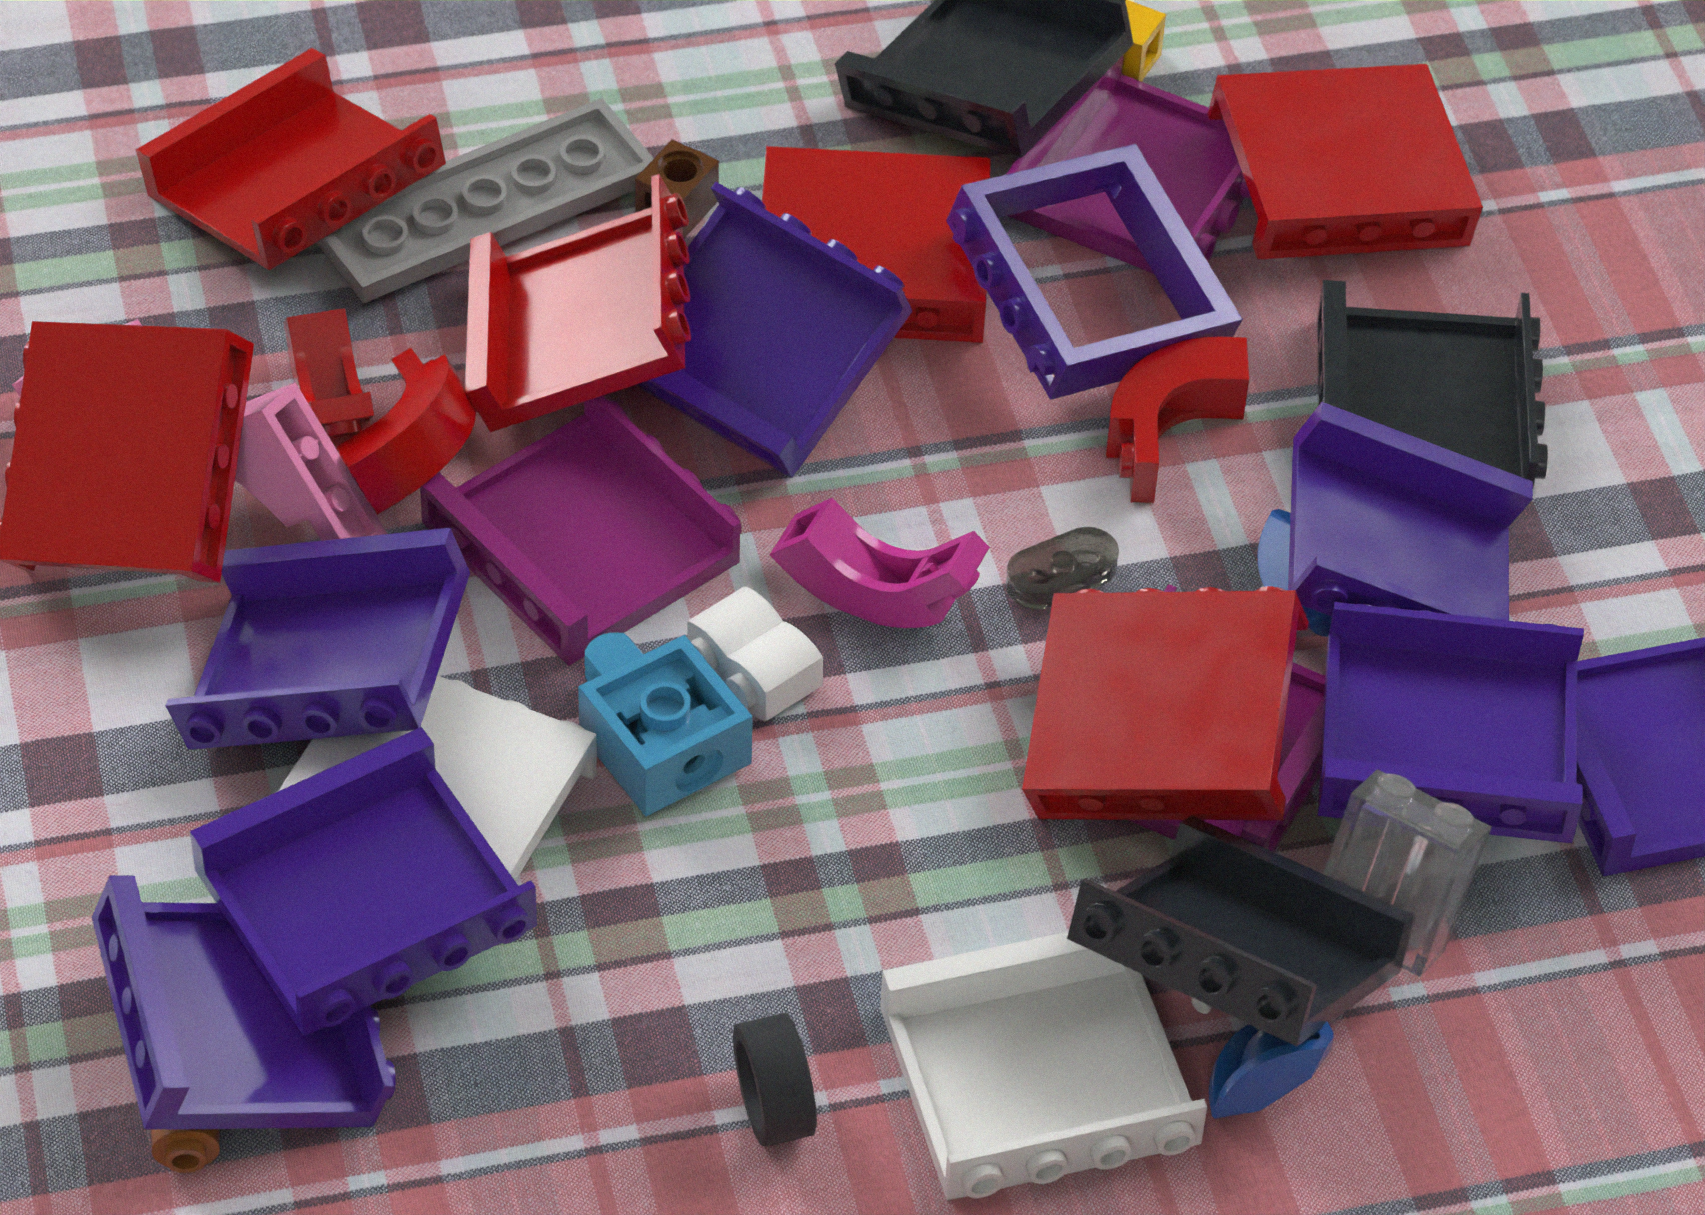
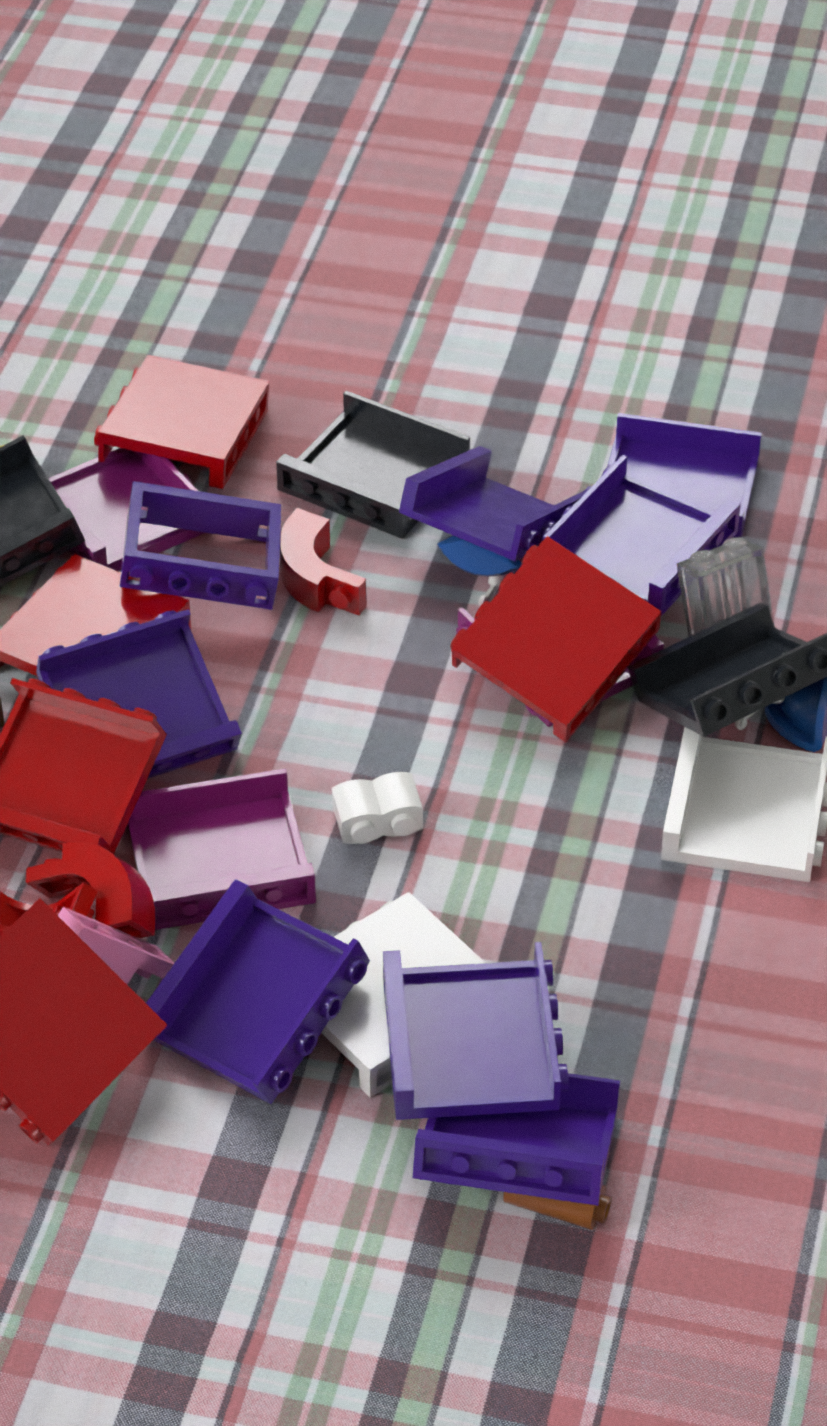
camera: 60 degrees left, 5 degrees down
(661, 719) = (406, 856): dark azure brick -> none
(774, 1079) = (716, 887): black tyre -> none
(871, 578) = (364, 730): dark pink arch -> none
(1058, 568) = (399, 656): clear smoke plate -> none

